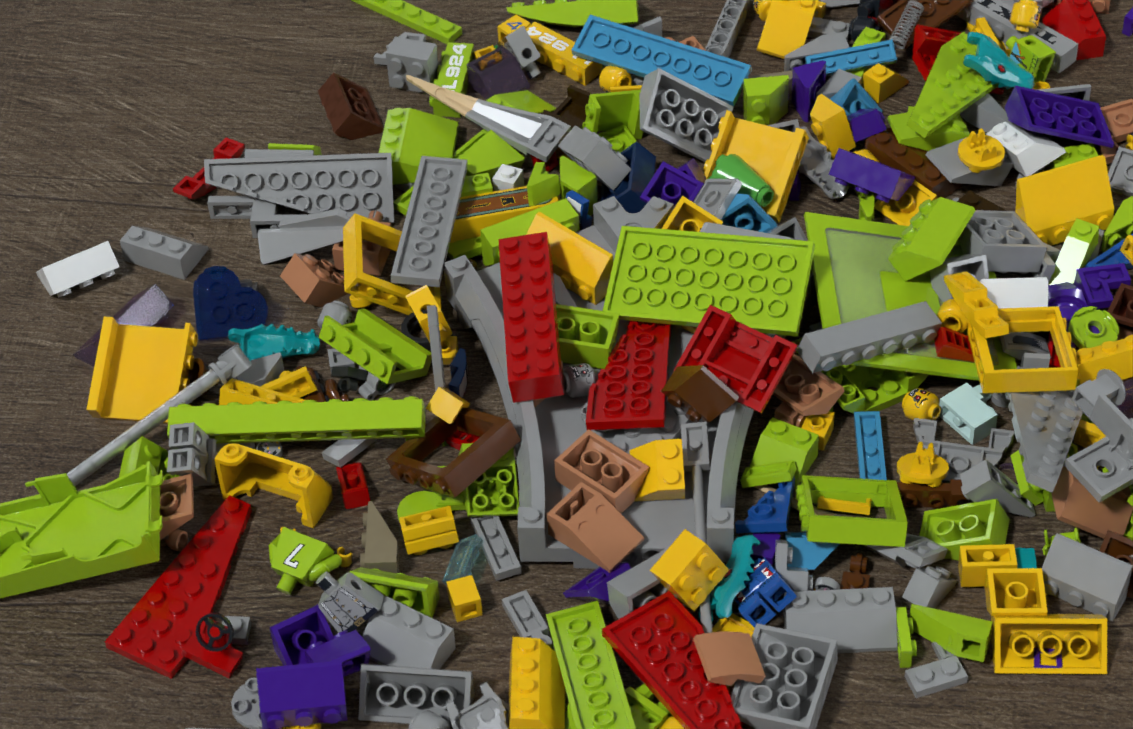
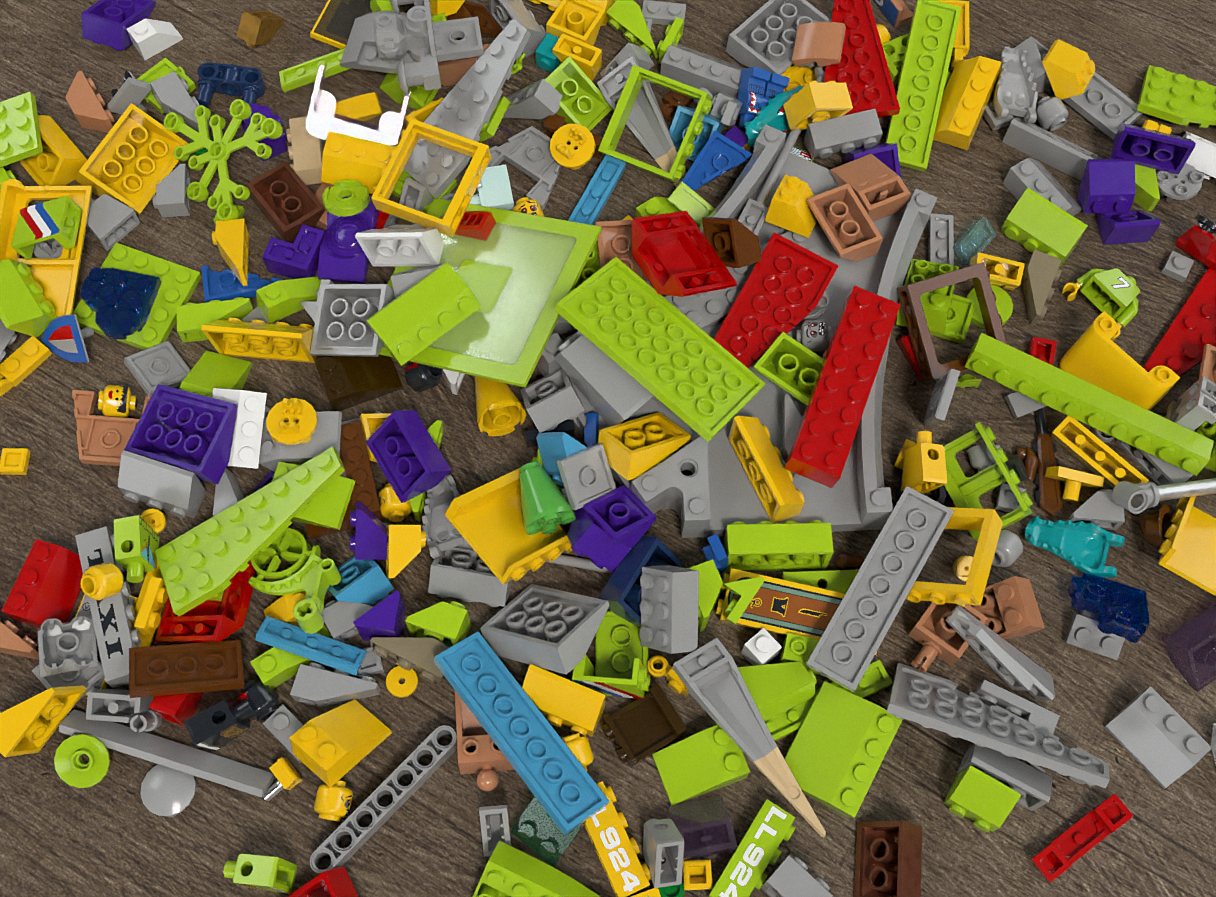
camera: 160 degrees left, 20 degrees up
(347, 601) = (1096, 216): light grey torso -> none
(446, 404) = (943, 356): yellow panel -> none
(459, 373) = (906, 427): blue slope -> none
(464, 598) = (987, 204): yellow panel -> none
(526, 617) = (942, 171): light grey plate -> none
(844, 506) = (637, 153): yellow tile -> none
(869, 337) = (554, 230): light grey brick -> none
(881, 86) = (306, 576): none -> lime piece
(897, 39) = (249, 637): light grey piece -> none
(952, 316) = (458, 245): yellow head -> none
(973, 302) = (443, 218): yellow slope -> none
(995, 64) = (183, 530): teal animal -> none

